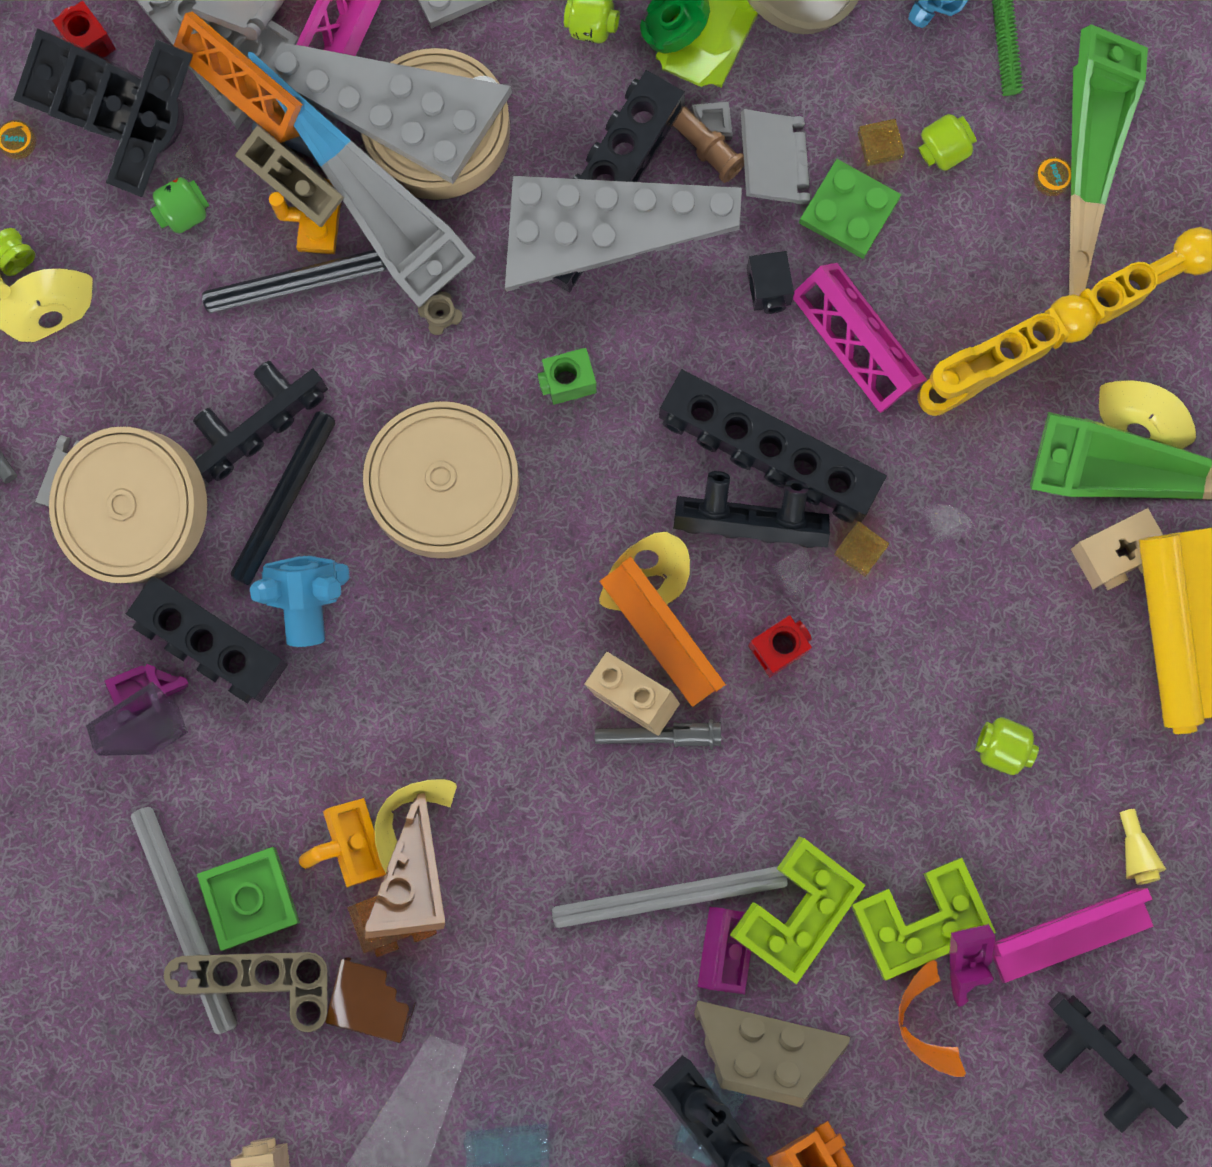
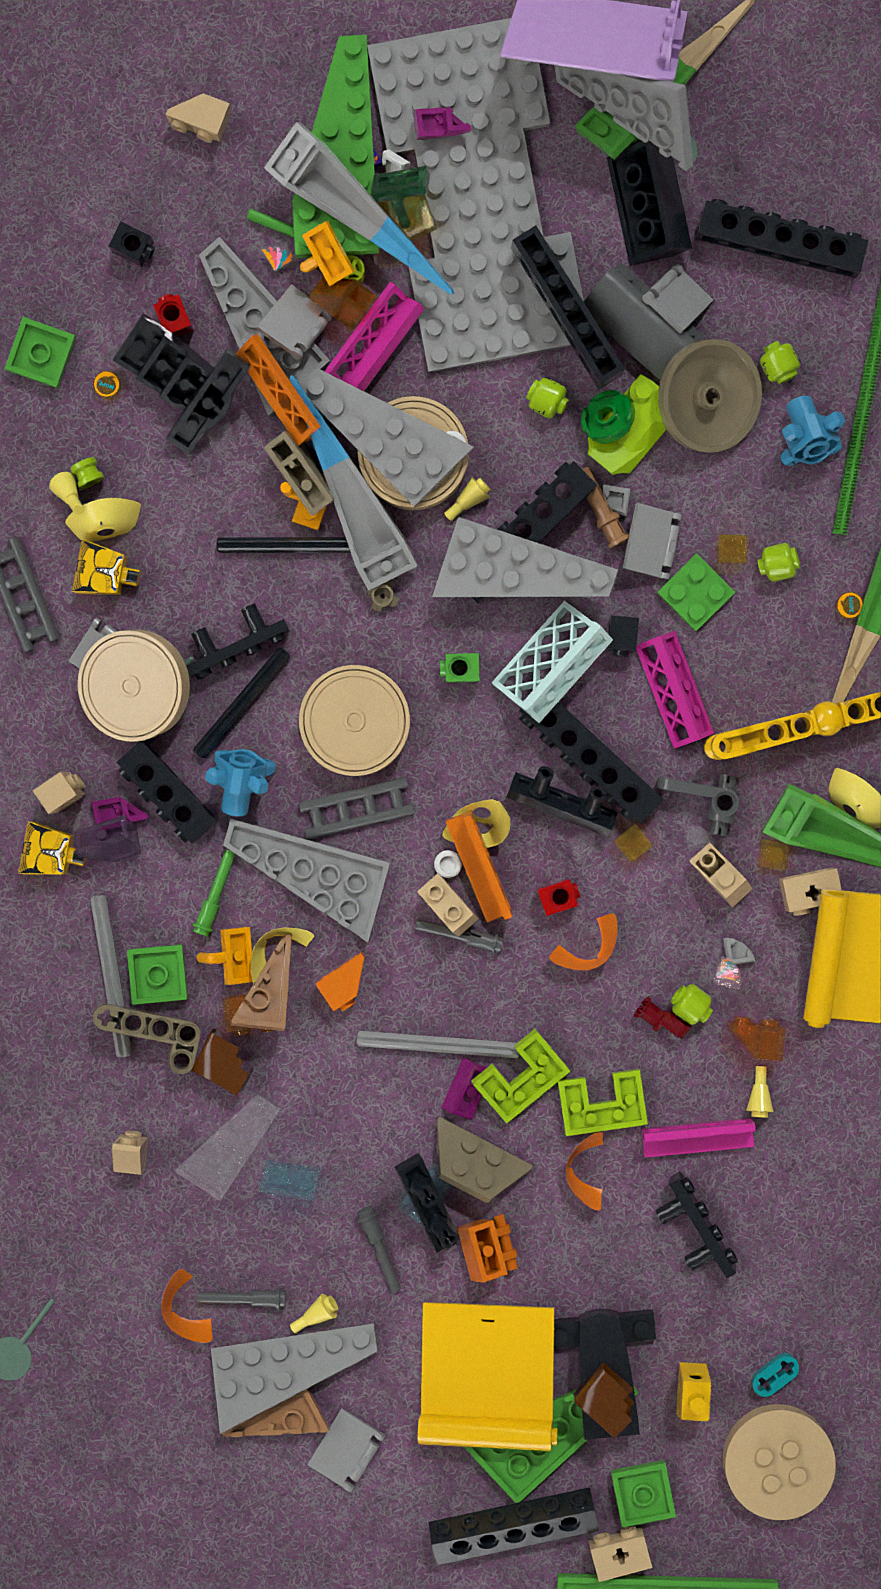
camera: 10 degrees right, 10 degrees up
(54, 673) = (60, 792): none -> tan brick
(55, 371) = (102, 571): none -> torso
(55, 764) = (47, 850): none -> torso
(179, 205) = (215, 469): bright green head -> none
(302, 785) = (210, 908): none -> bright green pin
(449, 593) = (346, 822): none -> dark grey bar
(457, 701) = (327, 877): none -> light grey wing
(513, 842) = (342, 983): none -> orange slope
(526, 157) = (473, 494): none -> light yellow cone
(618, 640) = (448, 863): none -> white tile
(703, 343) = (563, 671): none -> light aqua fence
(863, 676) = (608, 930): none -> orange piece
(963, 482) = (719, 817): none -> dark grey piece
(965, 777) = (657, 1018): none -> dark red connector
(969, 960) = (625, 1136): magenta slope -> none
(994, 559) = (721, 874): none -> tan slope
(1042, 693) = (727, 974): none -> clear tile
(1045, 661) = (737, 951): none -> light grey tile
(1054, 517) = (773, 854): none -> clear yellow plate
(1113, 772) = (761, 1039): none -> clear orange slope

